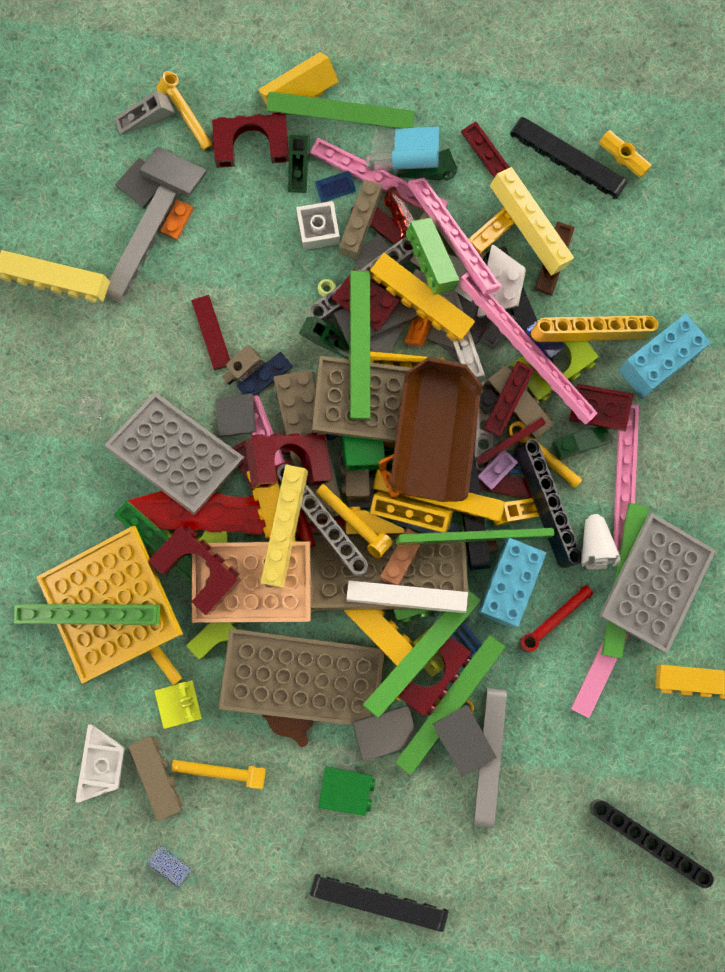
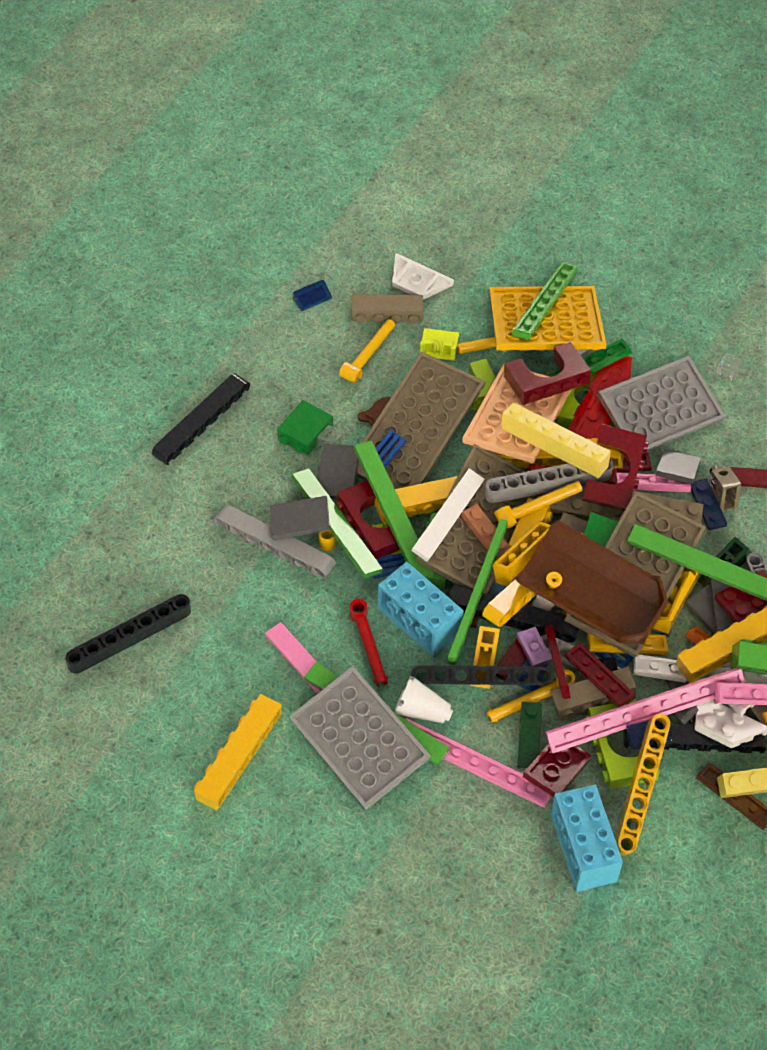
camera: 115 degrees right, 25 degrees down
(360, 697) = (396, 437): none -> blue tile
(445, 463) = (556, 577): none -> yellow piece

